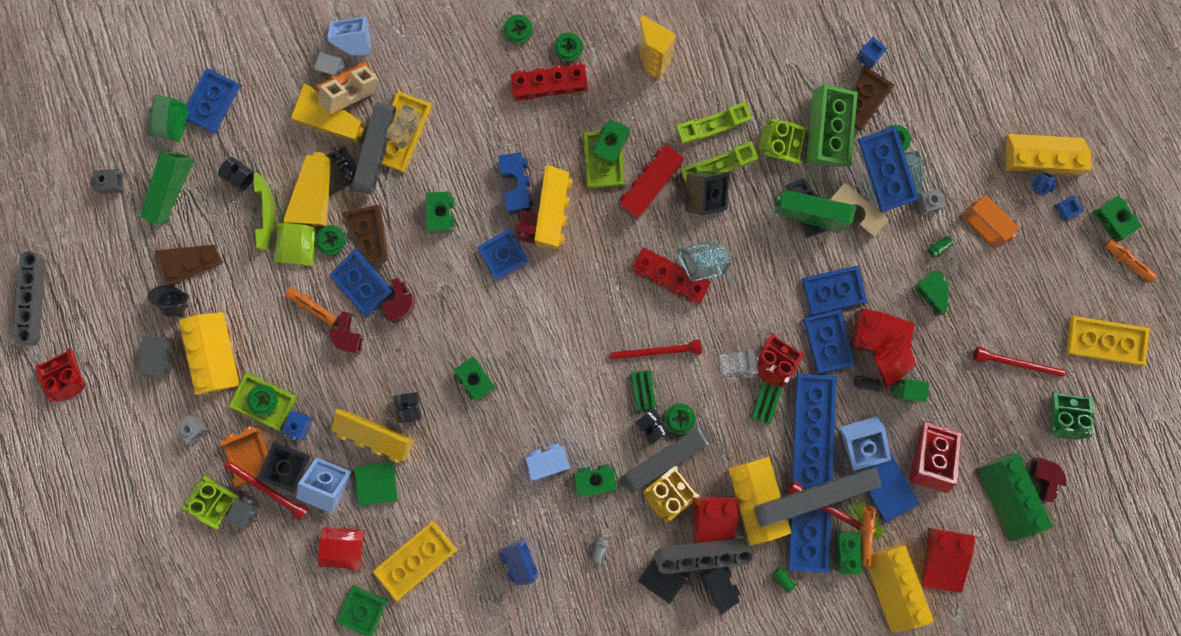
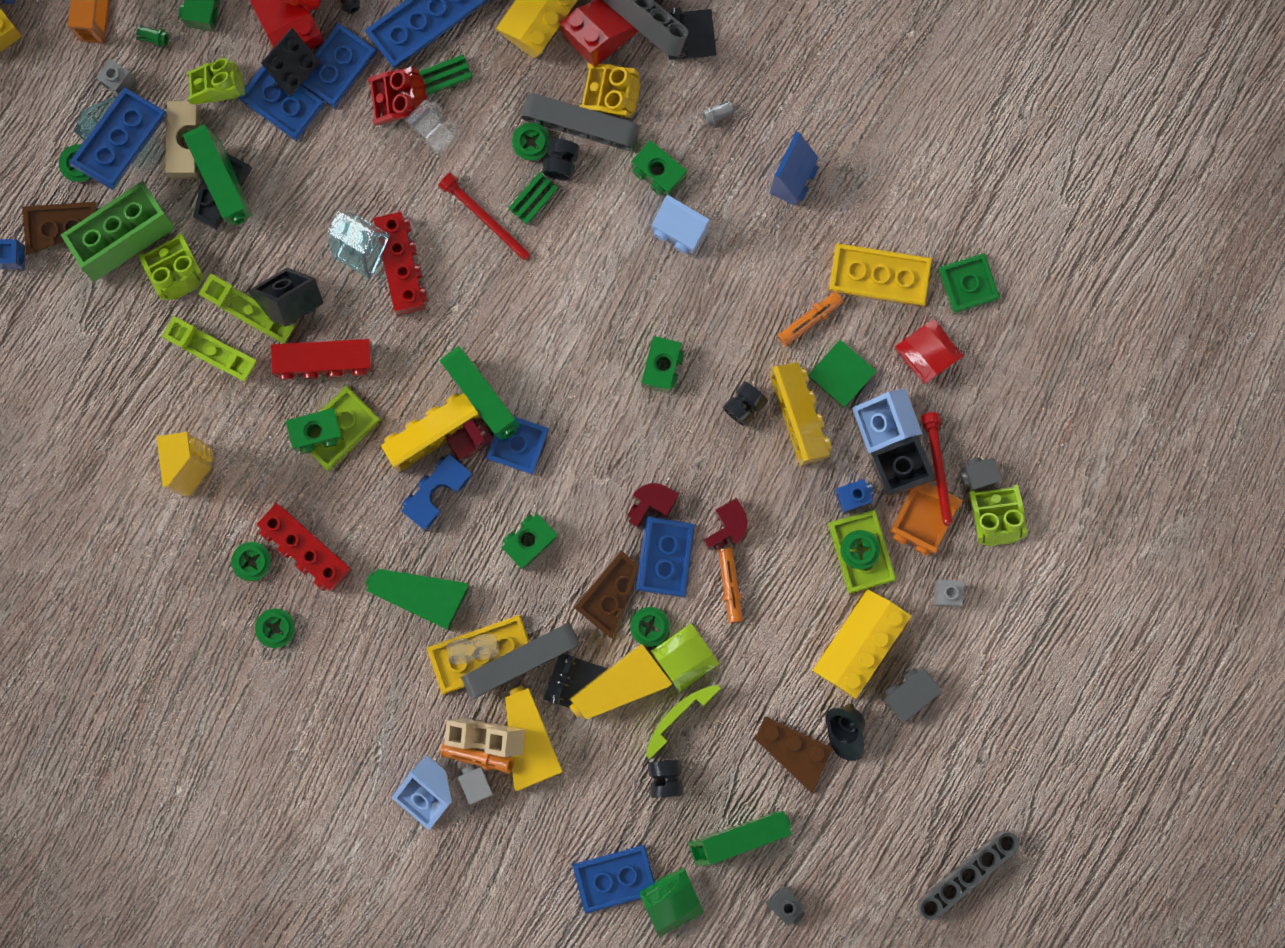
camera: 140 degrees left, 0 degrees up
(60, 377) = (1012, 771): red slope -> none
(424, 493) = (833, 301): none -> orange pin
(464, 124) = (424, 596): none -> green slope
(548, 255) = (480, 393): none -> green slope
(851, 311) = (290, 62): none -> black hinge
(877, 258) = (215, 82): none -> lime slope

